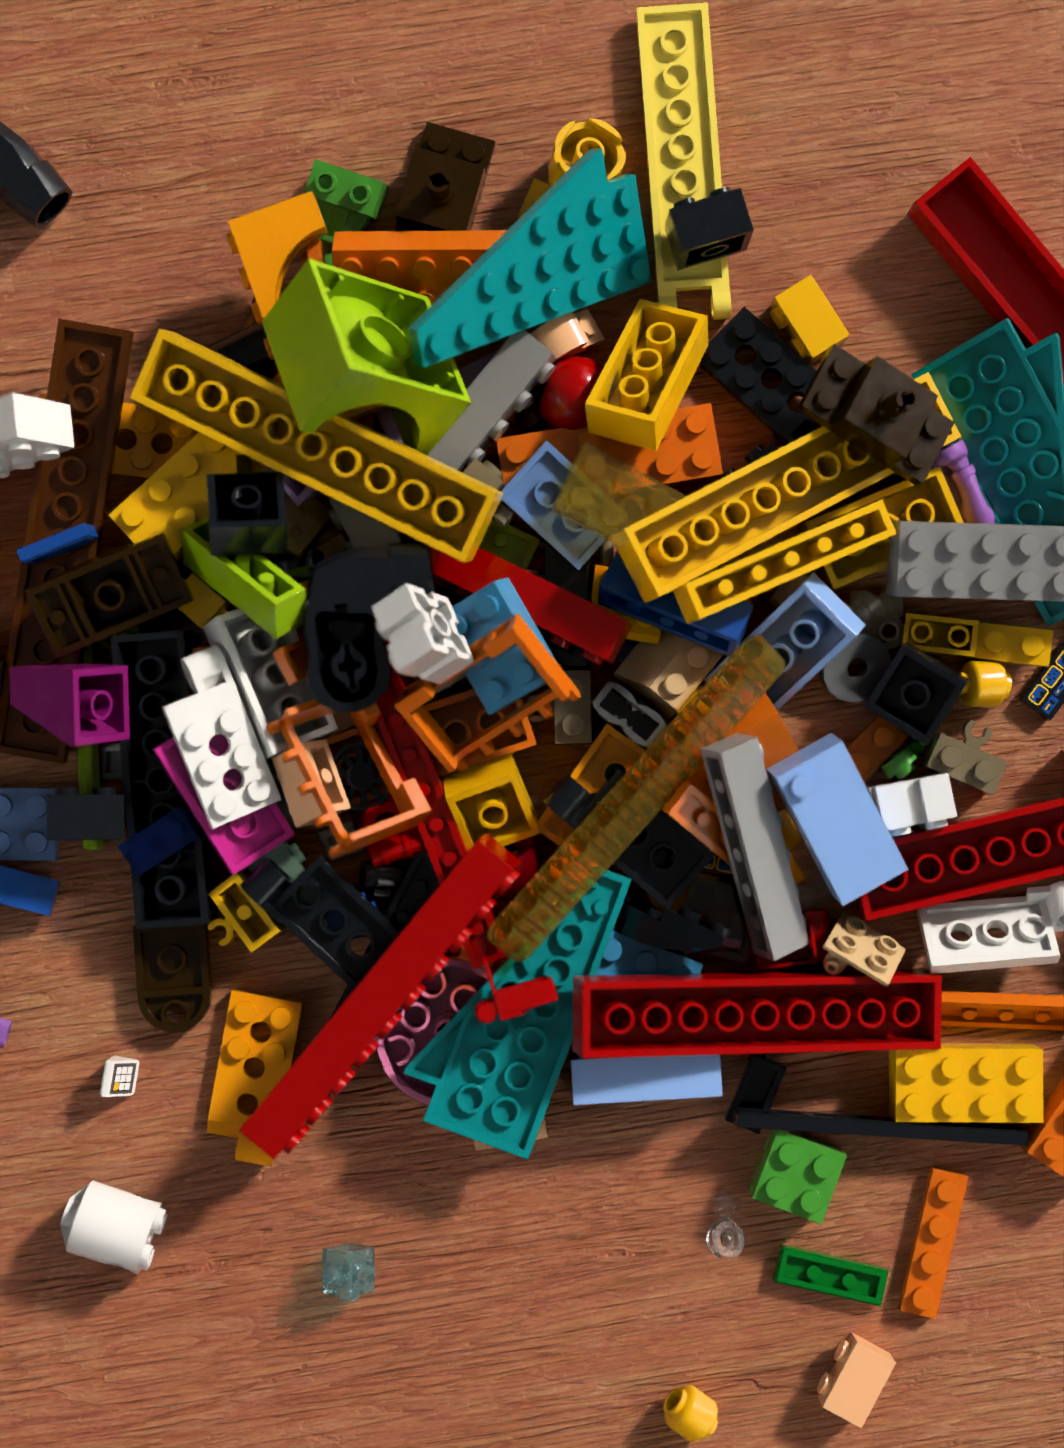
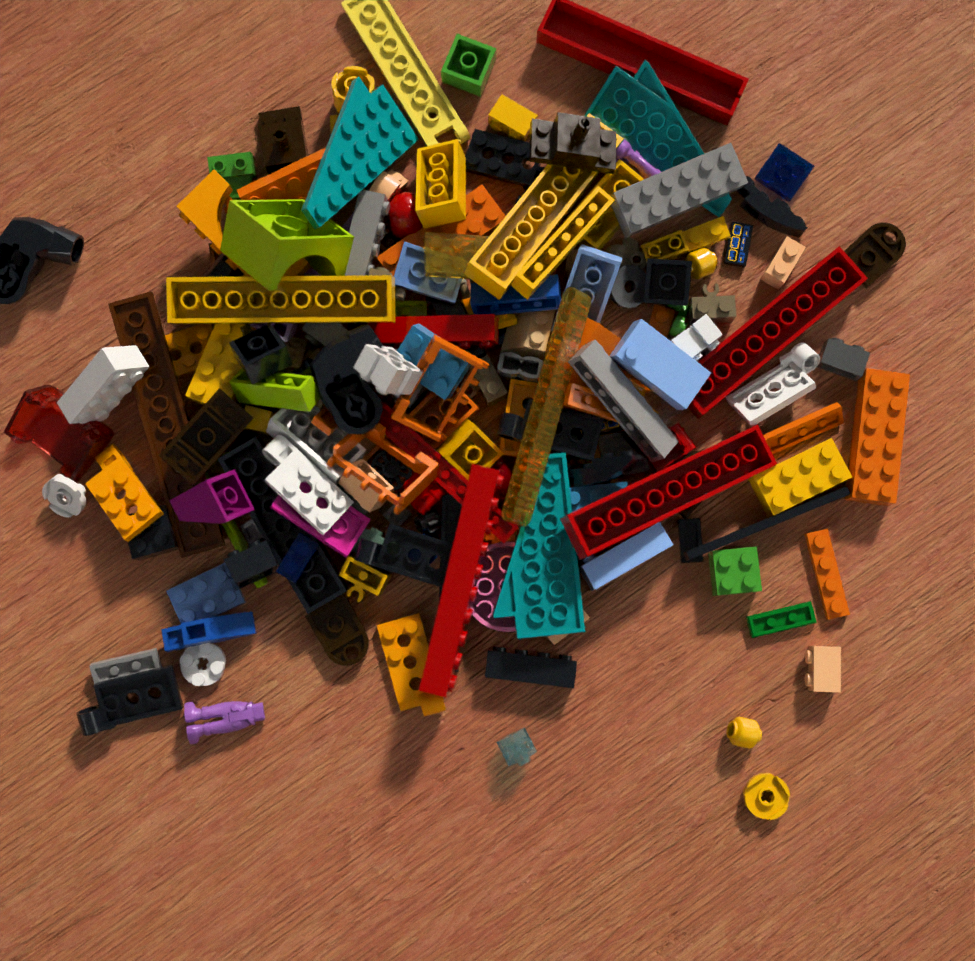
camera: 30 degrees left, 5 degrees down
(58, 544) = (164, 424): blue tile -> none
(112, 1226) = (373, 787): white cylinder -> none
(119, 1077) = (337, 703): slope -> none
(426, 1166) = (531, 669): none -> black brick
(515, 999) = (534, 545): red piece -> none
(708, 227) = (435, 93): black brick -> none
(726, 1206) = (713, 626): clear plate -> none
(786, 202) = (468, 65): none -> bright green brick
(862, 948) = (700, 430): tan hinge -> none

